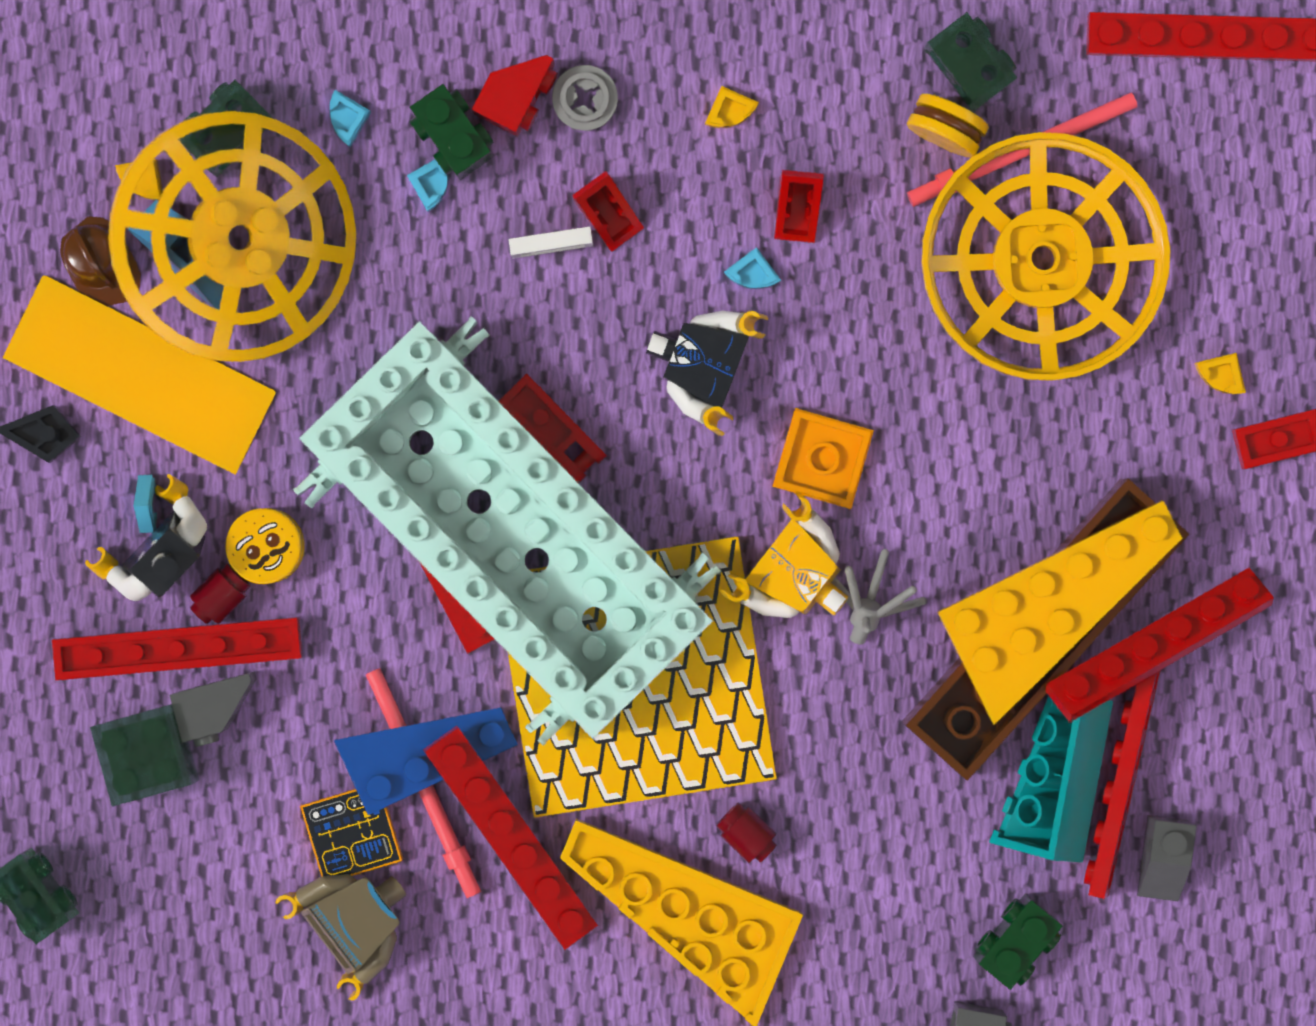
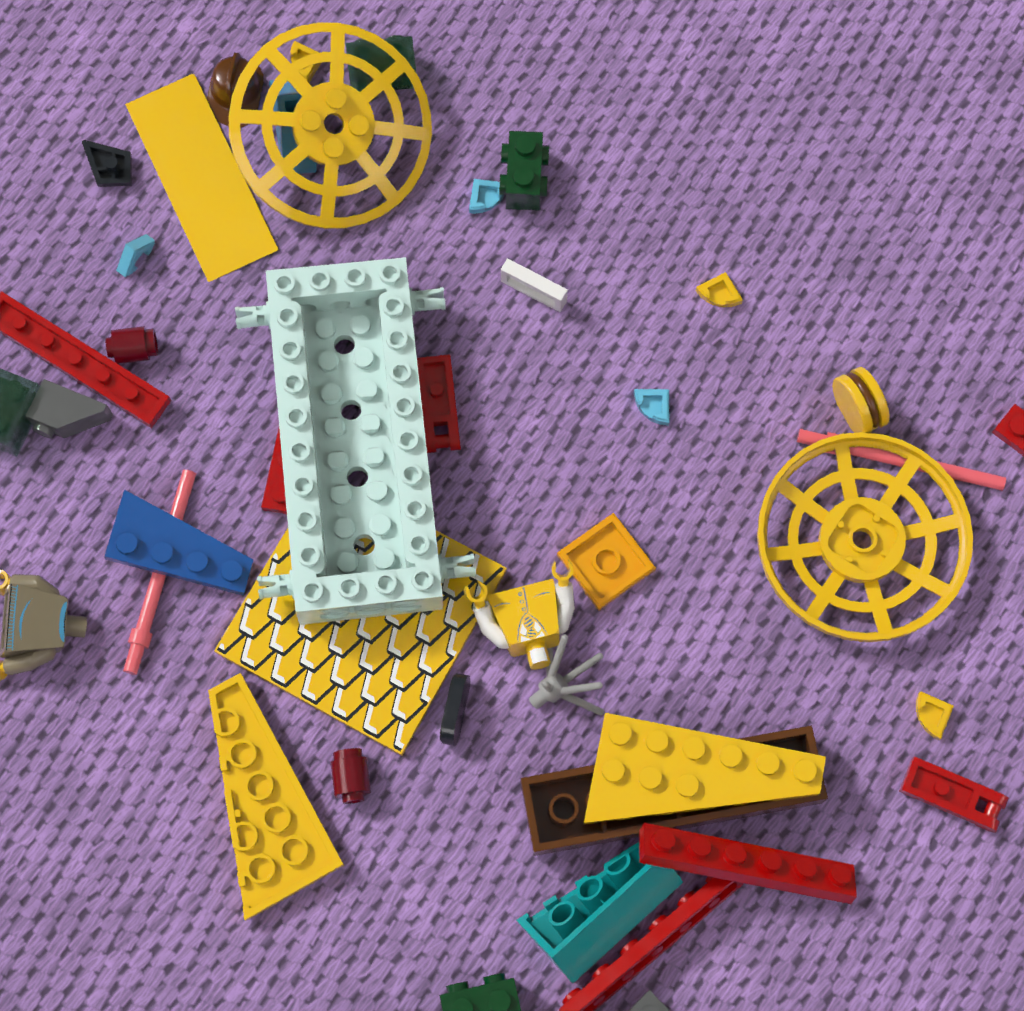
camera: 40 degrees right, 15 degrees down
(163, 554) = (118, 288): torso -> none
(265, 545) = (188, 337): yellow head -> none
(347, 117) = (465, 118): medium azure tile -> none
(347, 837) = (80, 568): black tile -> none
(510, 837) = (186, 650): red plate -> none
(512, 92) = (584, 176): red slope -> none
(588, 79) = (640, 206): light grey gear -> none
(607, 211) = (587, 291): red slope -> none
(705, 362) = (576, 434): torso -> none
(793, 702) = (455, 709): none -> black tile
(798, 206) = (719, 380): red slope -> none
(964, 65) = (908, 373): clear green brick -> none

